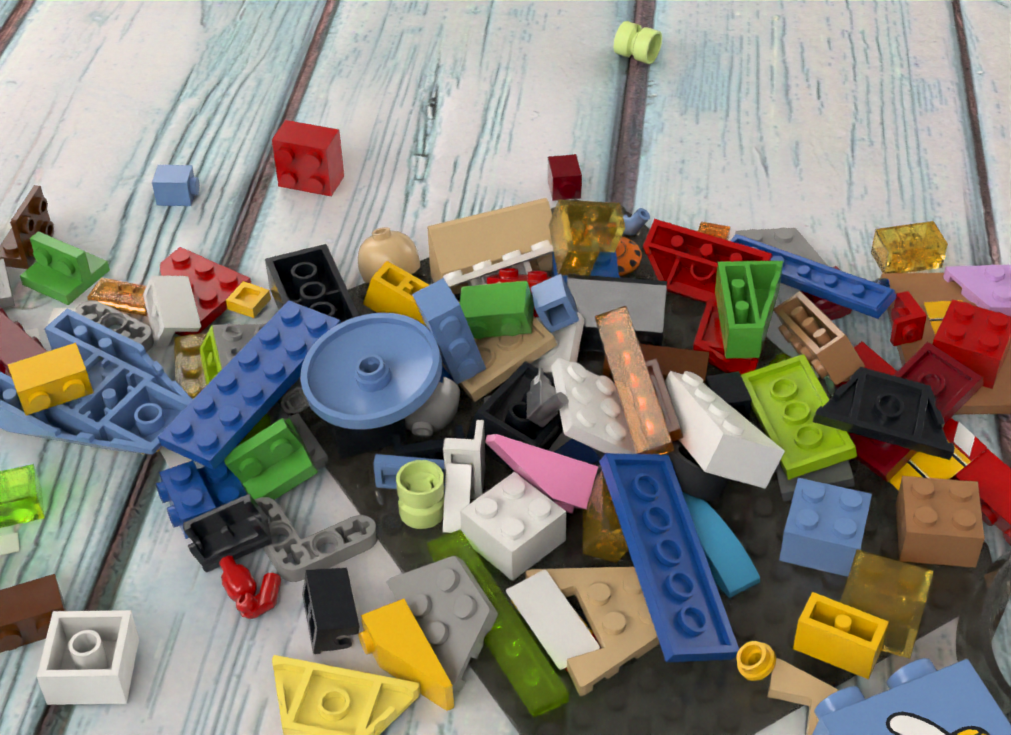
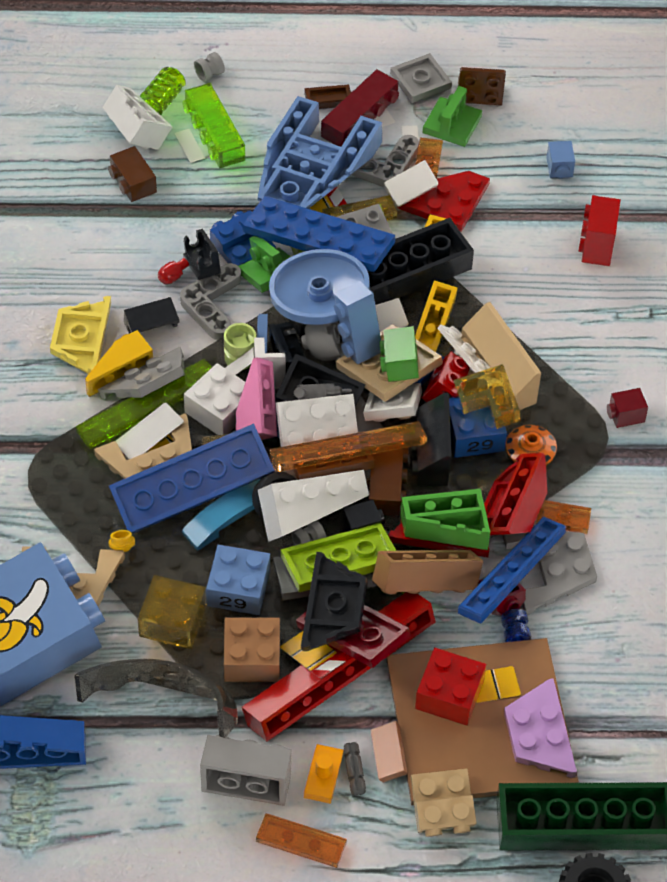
camera: 80 degrees right, 10 degrees up
(50, 379) = (302, 128): yellow brick -> none
(88, 657) = (98, 208): white brick -> none
(254, 606) = (158, 287): red arm -> none
(387, 246) = (494, 291): tan cylinder -> none
(554, 303) = (414, 388): medium blue brick -> none
(636, 221) = (567, 449): medium blue arm -> none
(840, 635) = (136, 581): yellow brick -> none
(907, 320) = (477, 645): red bracket -> none
(909, 248) = (582, 658): clear yellow brick -> none

